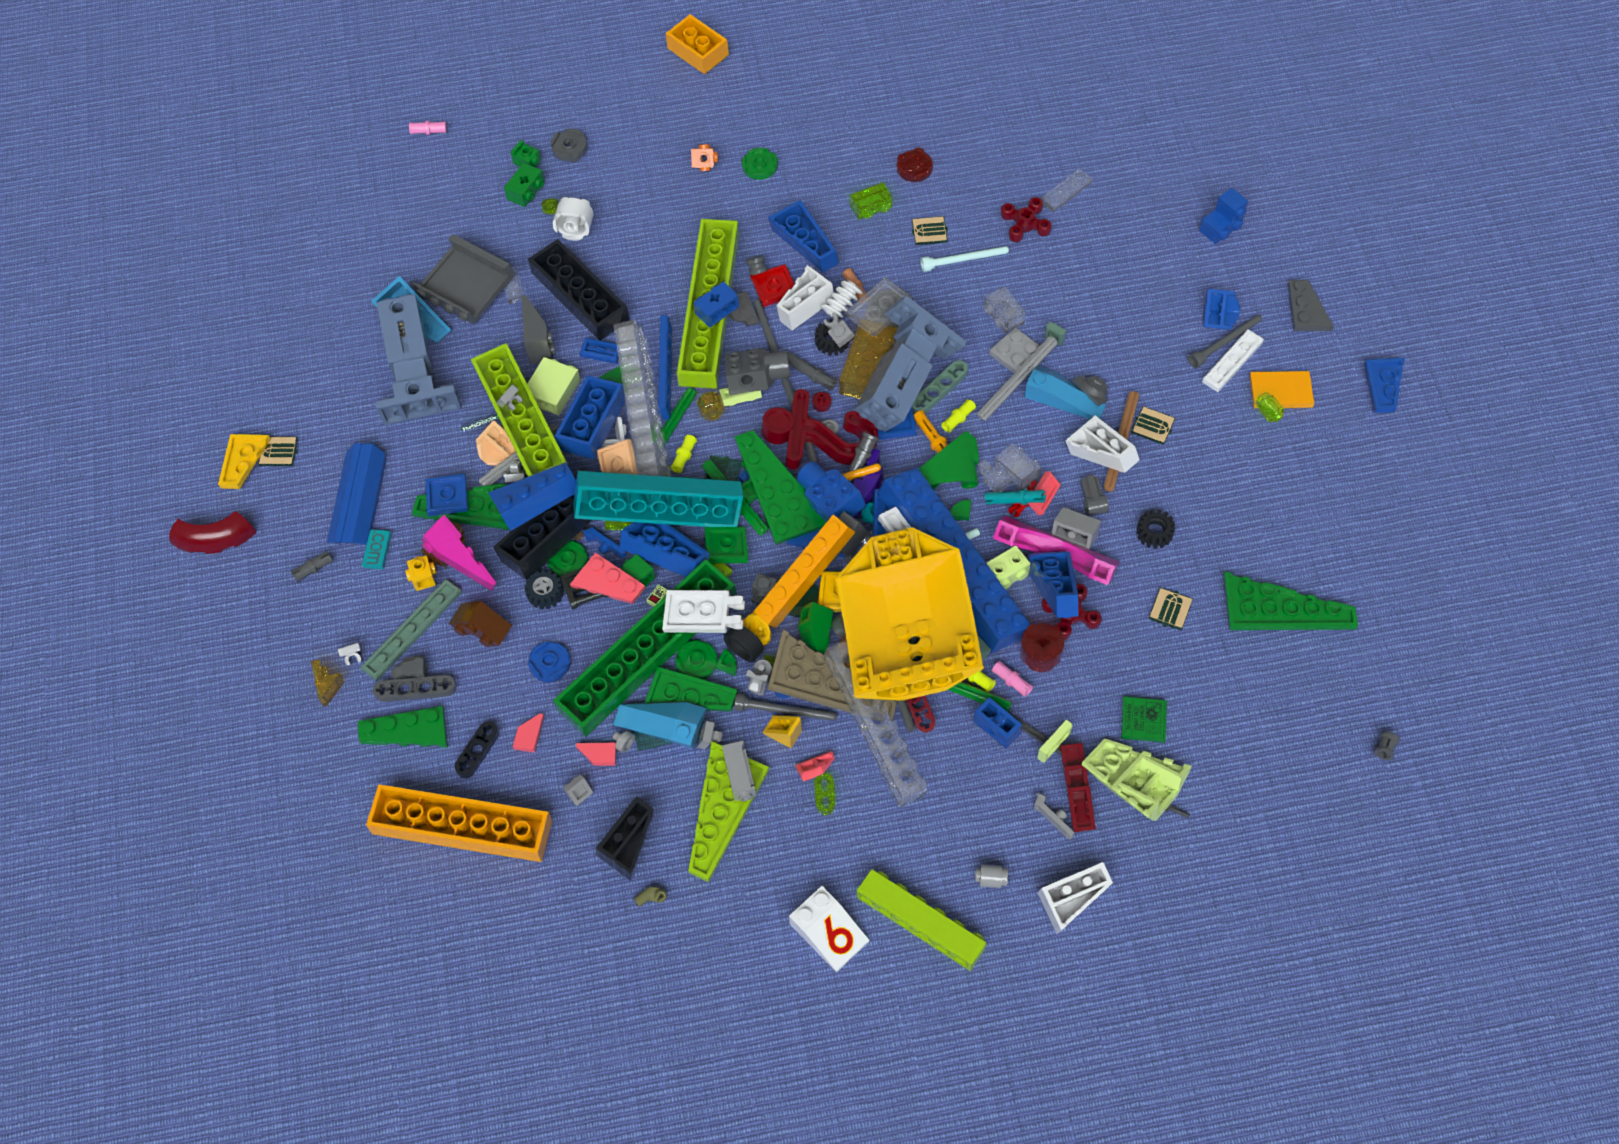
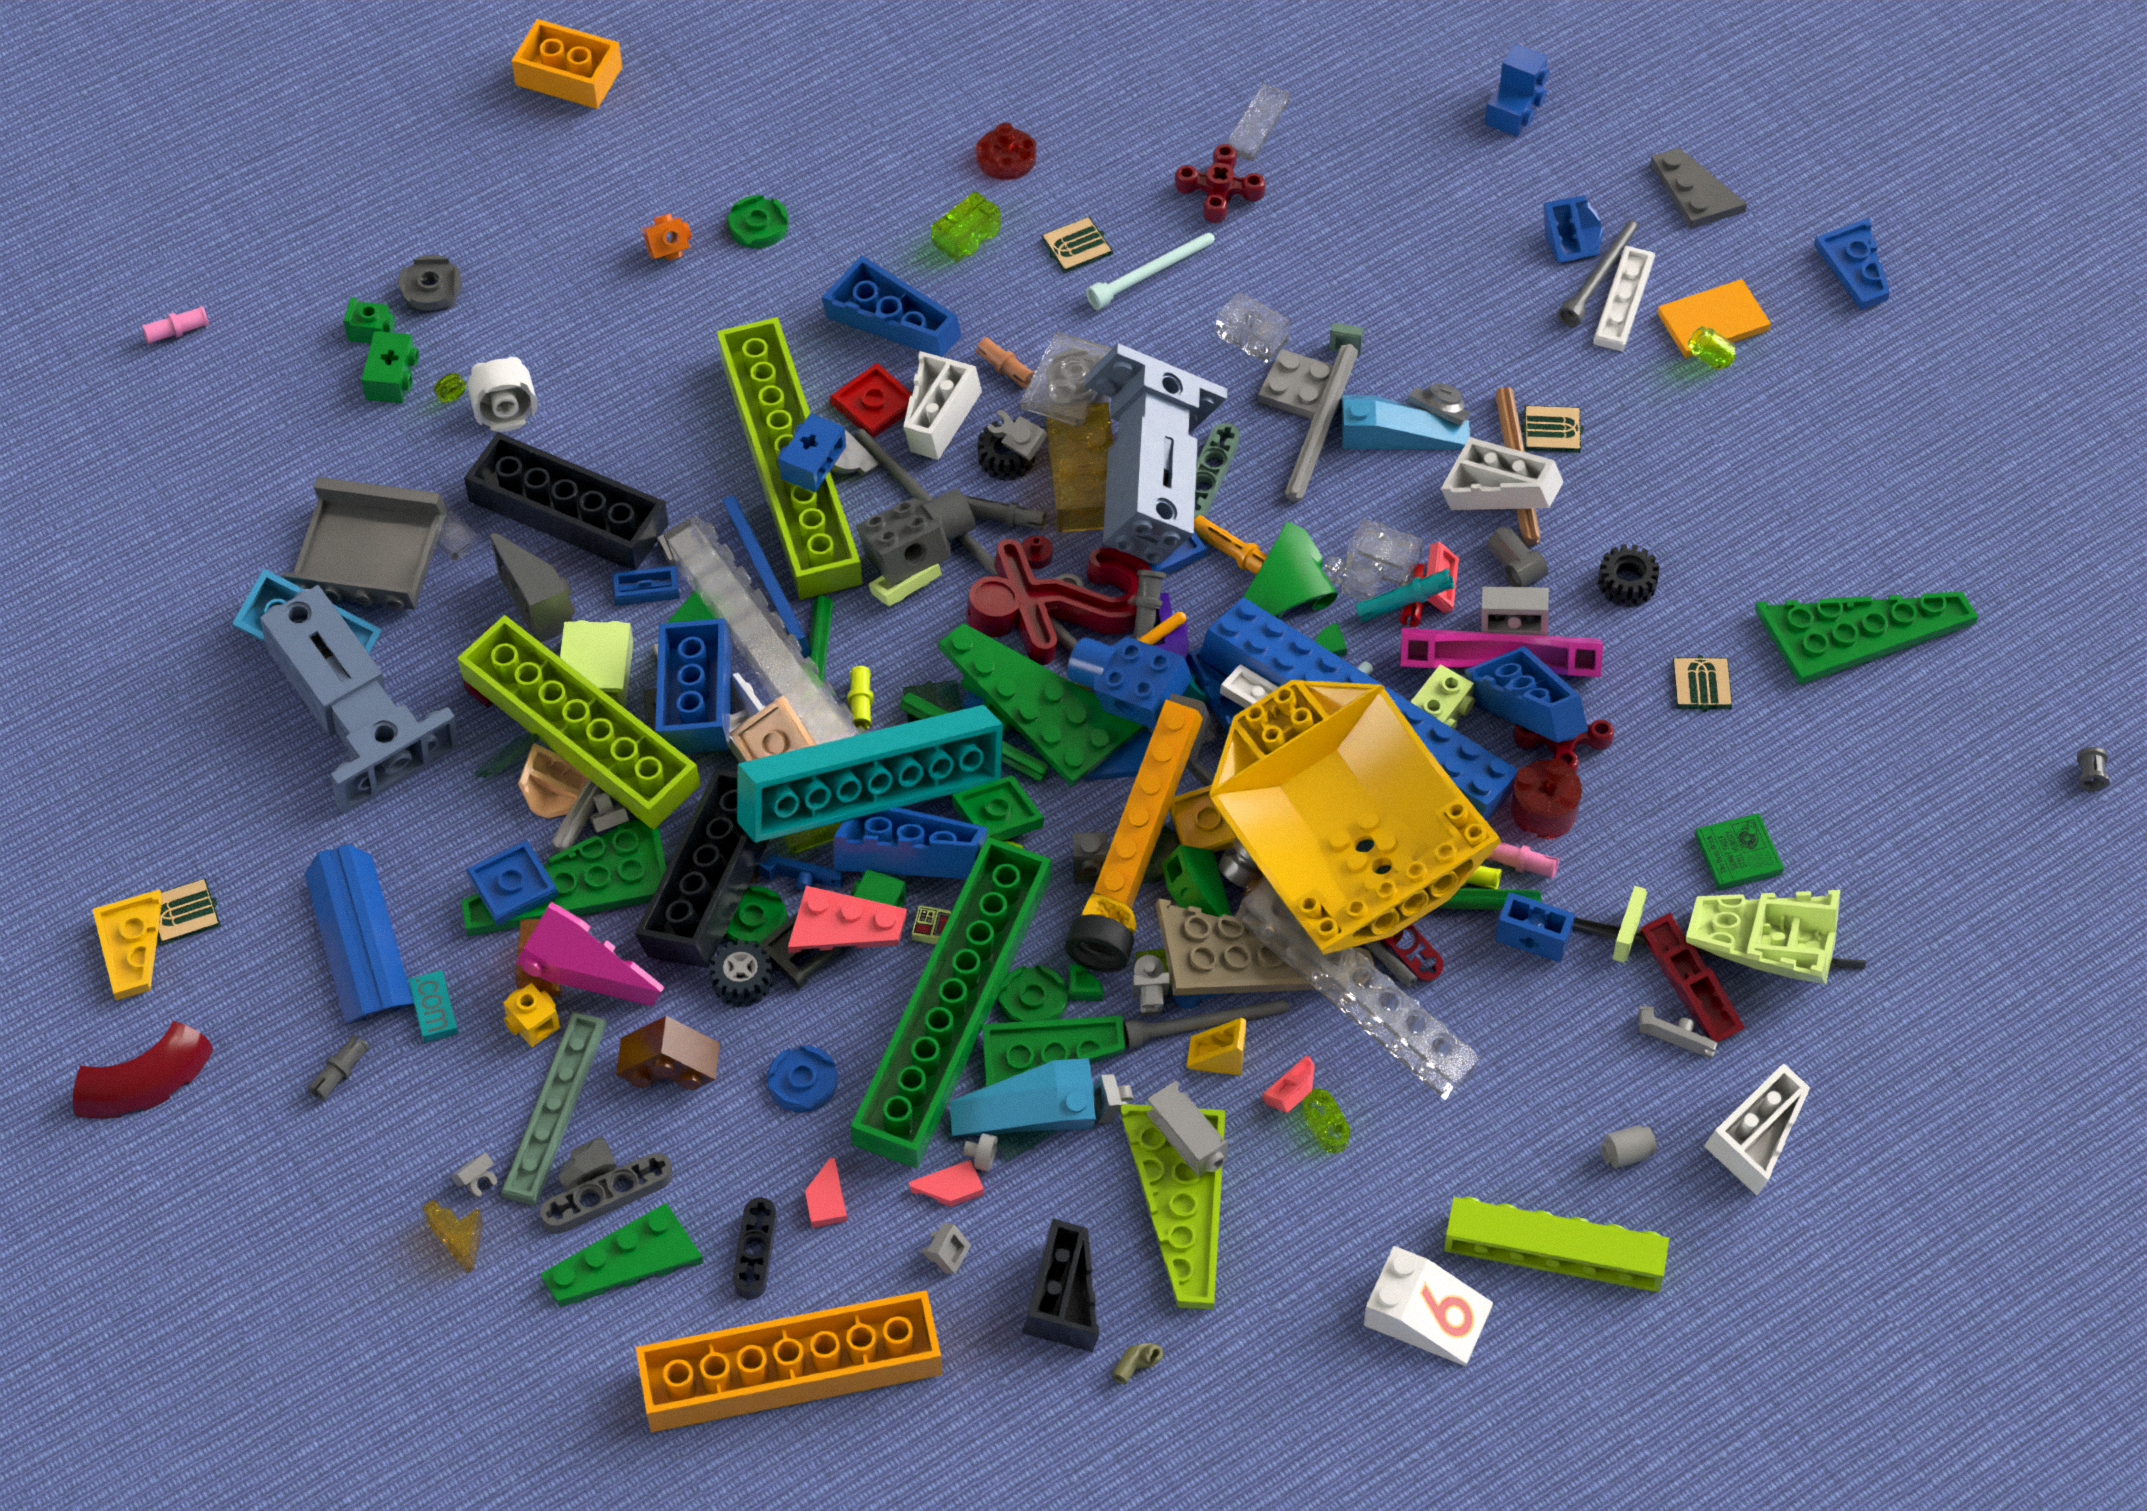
camera: 25 degrees left, 5 degrees down
(507, 398) = (554, 693): light grey tile -> none
(533, 495) = (665, 831): blue wedge -> none
(701, 611) = (1022, 913): white tile -> none
(710, 406) = (868, 613): clear yellow head -> none
(756, 264) = (834, 376): dark grey wheel -> none
(841, 299) = (996, 386): white piece -> none
(958, 415) = (1258, 506): neon yellow pin -> none

